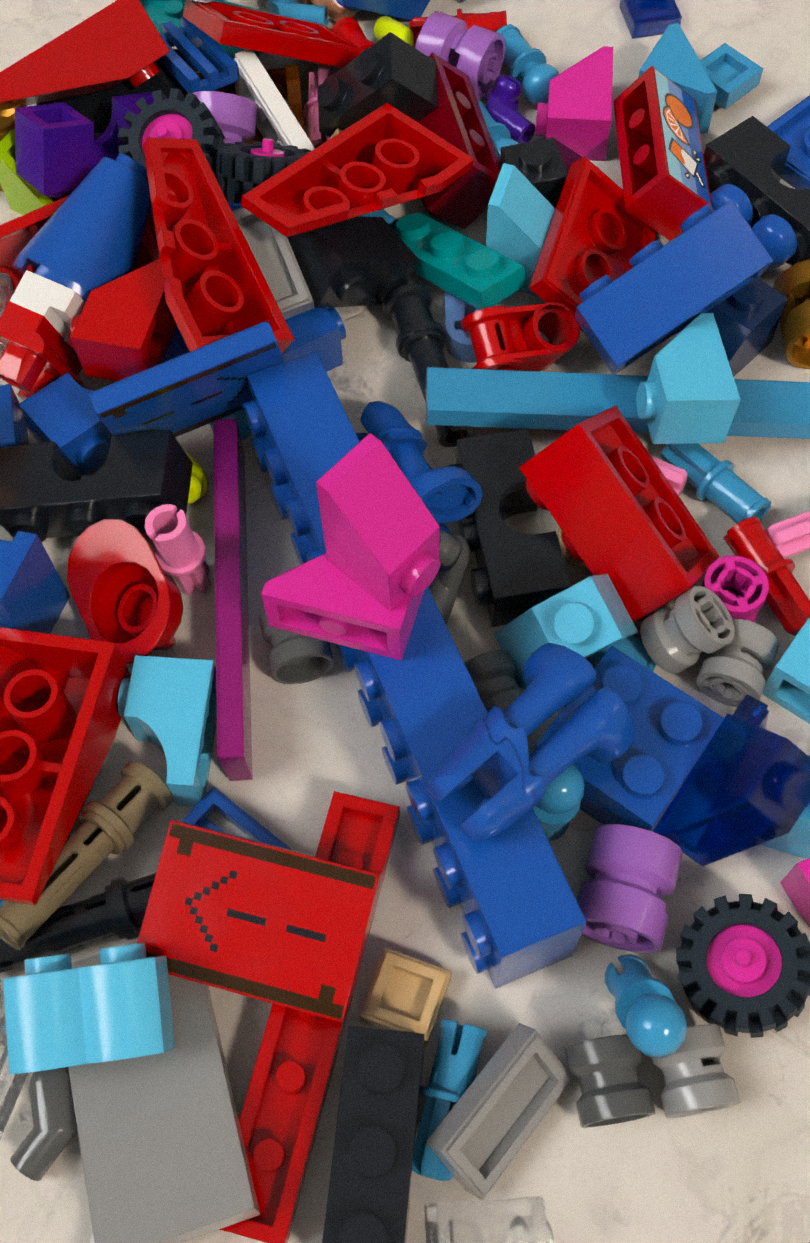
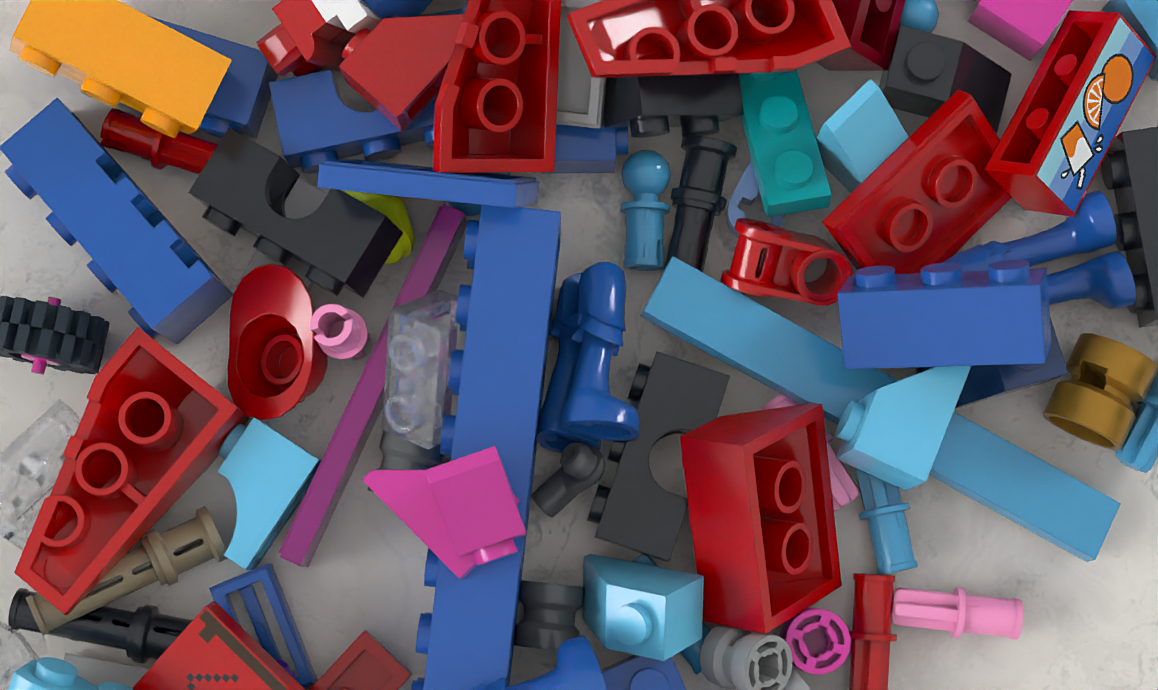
camera: 25 degrees right, 20 degrees up
(259, 527) = (418, 368): none -> clear bracket
(383, 366) = (645, 177): none -> dark azure pin

